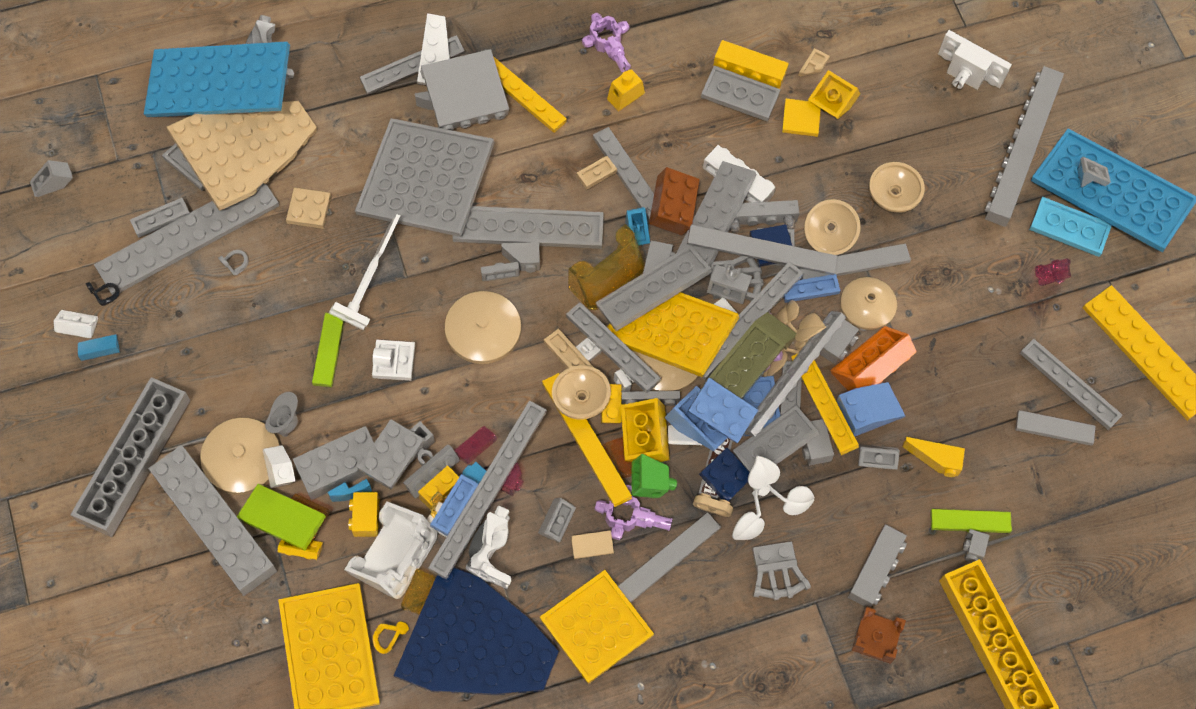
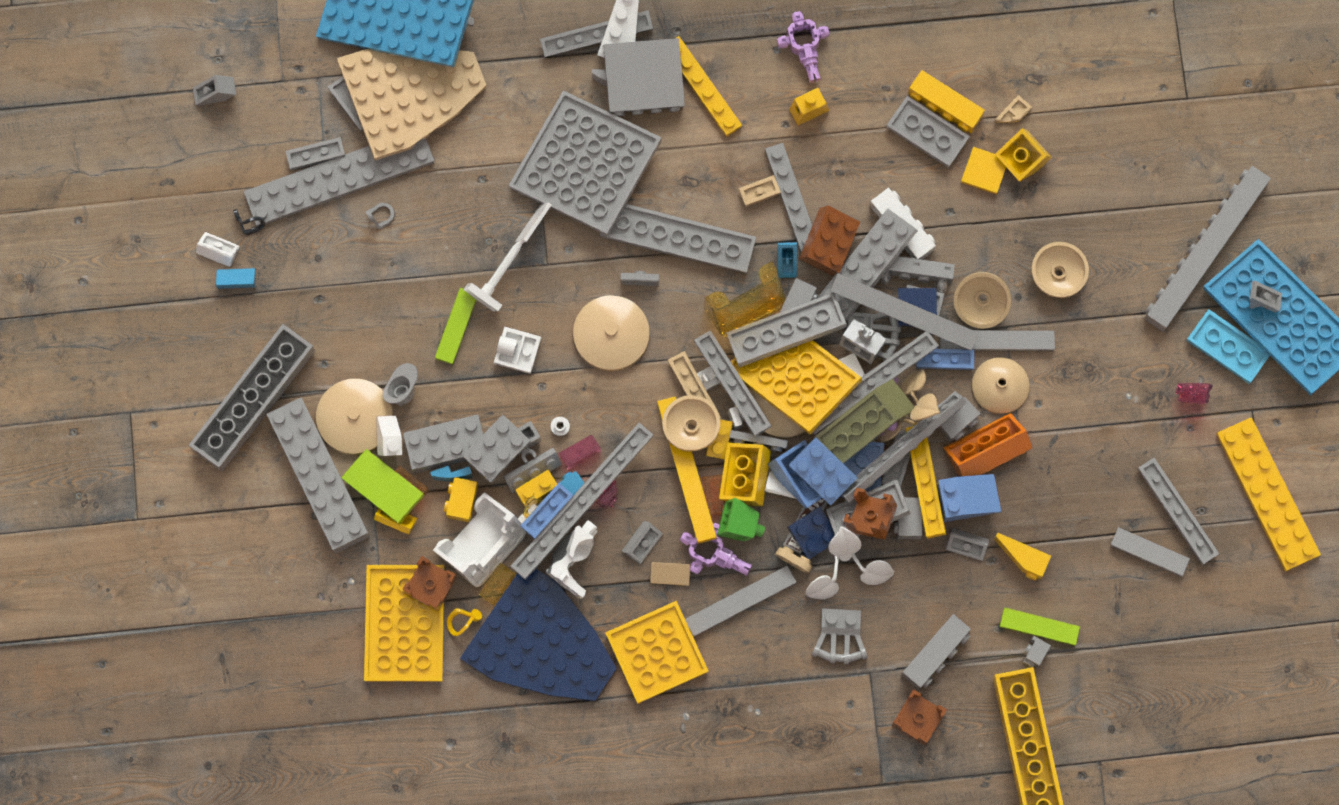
camera: 15 degrees right, 10 degrees up
(308, 208) = (463, 171): tan plate -> none
(347, 604) = (429, 584): none -> dark orange panel
(450, 429) = (560, 432): none -> white plate
(524, 253) = (667, 267): light grey slope -> none
(782, 443) = (871, 515): none -> dark orange panel
(972, 63) = (1176, 148): white brick -> none

